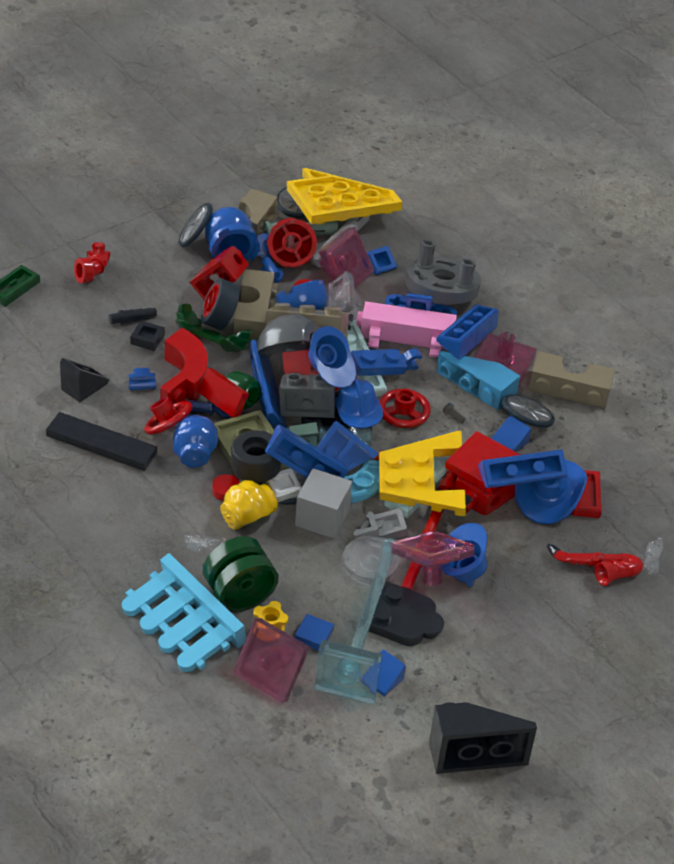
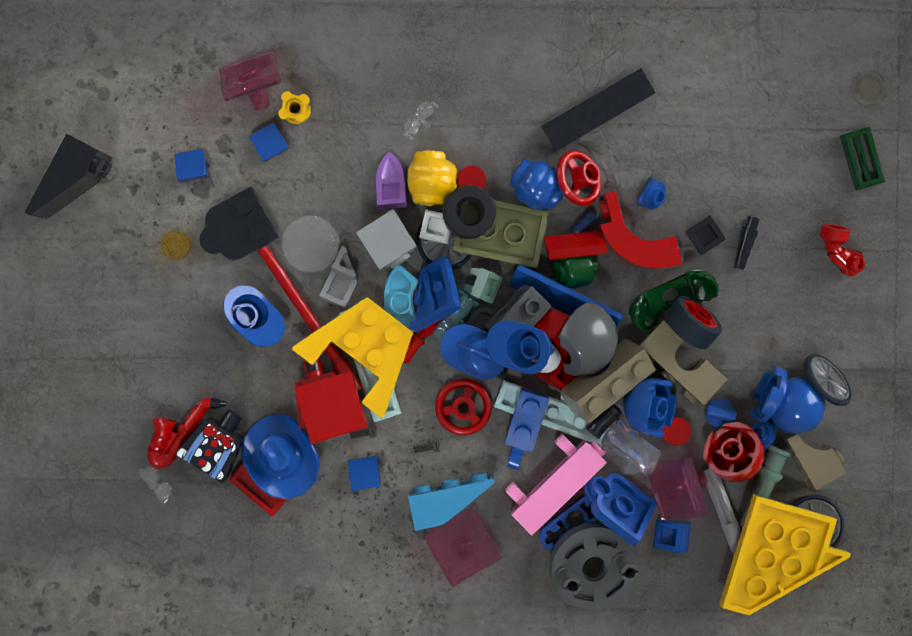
camera: 130 degrees right, 45 degrees up
(80, 380) = (684, 140): black slope -> none
(189, 593) = (340, 68): medium azure fence -> none
(227, 265) = (740, 356): red torso -> none
(240, 574) = (351, 110): dark green wheel -> none
(278, 529) = (390, 184): none -> medium lavender plate
(301, 455) = (434, 252): blue slope -> none
(350, 669) = (198, 128): clear light blue tile -> none
(388, 280) = (620, 506): none -> blue plate
(418, 302) = (571, 512): blue slope -> none
(432, 551) = (266, 285): clear pink tile -> none
(458, 650) = (176, 245): none -> clear yellow tile
(469, 330) = (506, 531): blue slope -> none
(523, 468) = (292, 428): blue slope -> none
(528, 411) = (379, 510): wheel -> none
(586, 529) = (214, 446): none -> torso
(587, 388) = (367, 596): dark tan arch -> none

